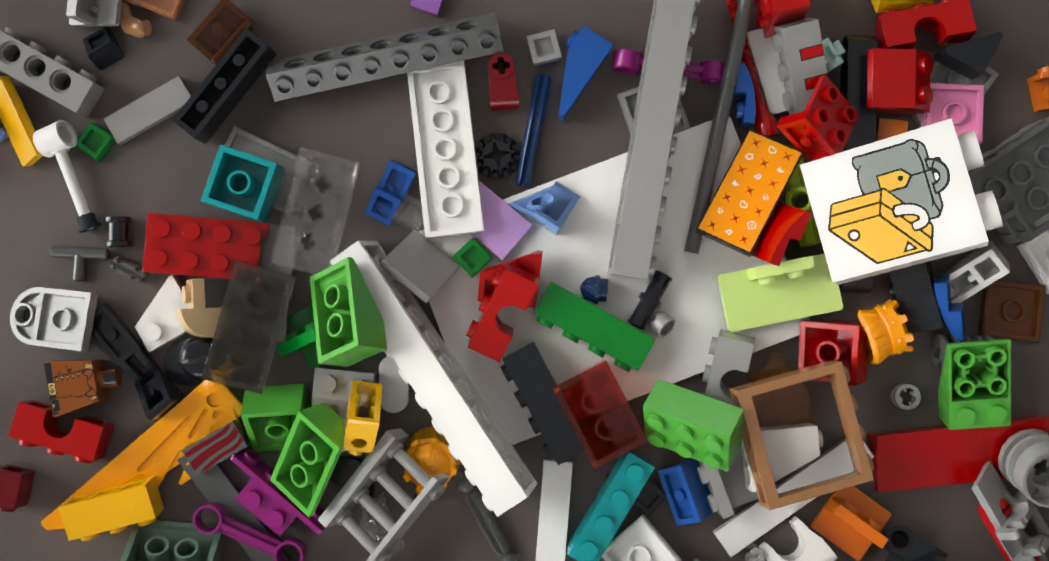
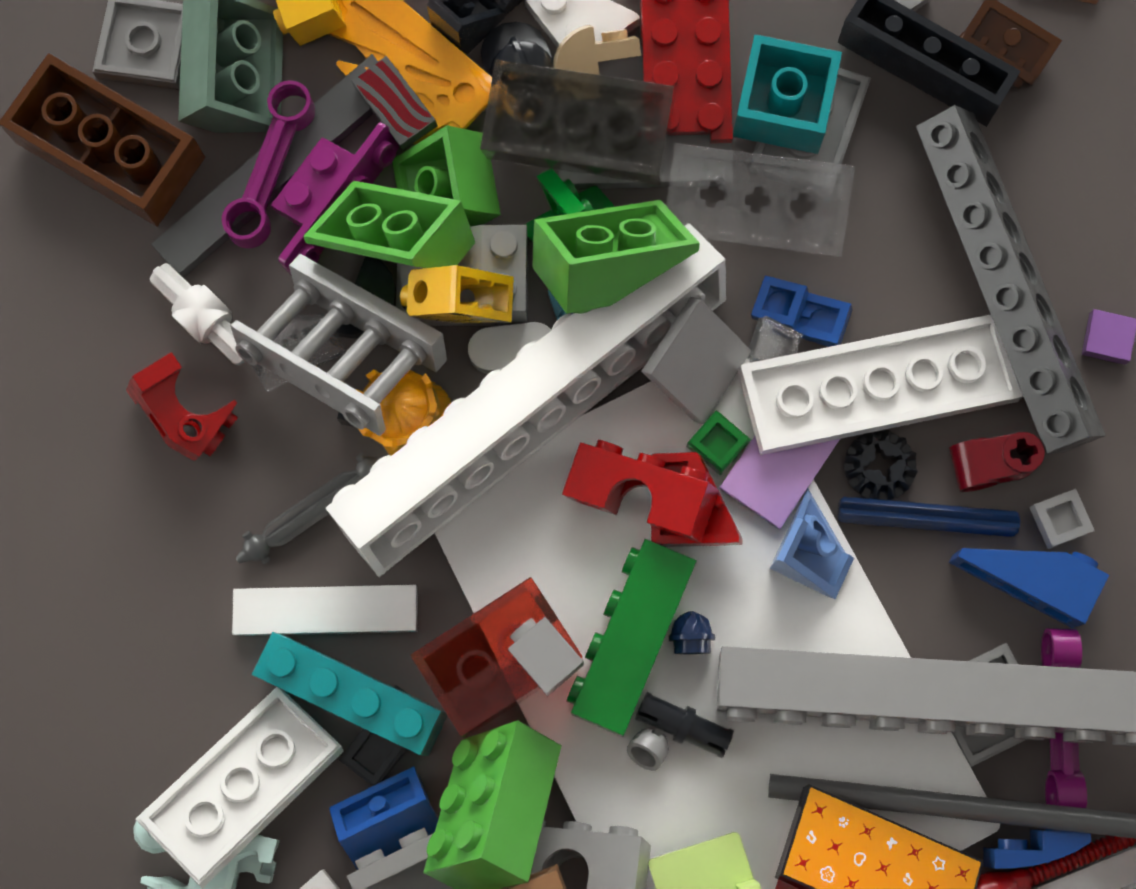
camera: 85 degrees right, 10 degrees down
(536, 392) = (538, 550): black brick -> none
(605, 385) = (544, 654): none -> light grey brick

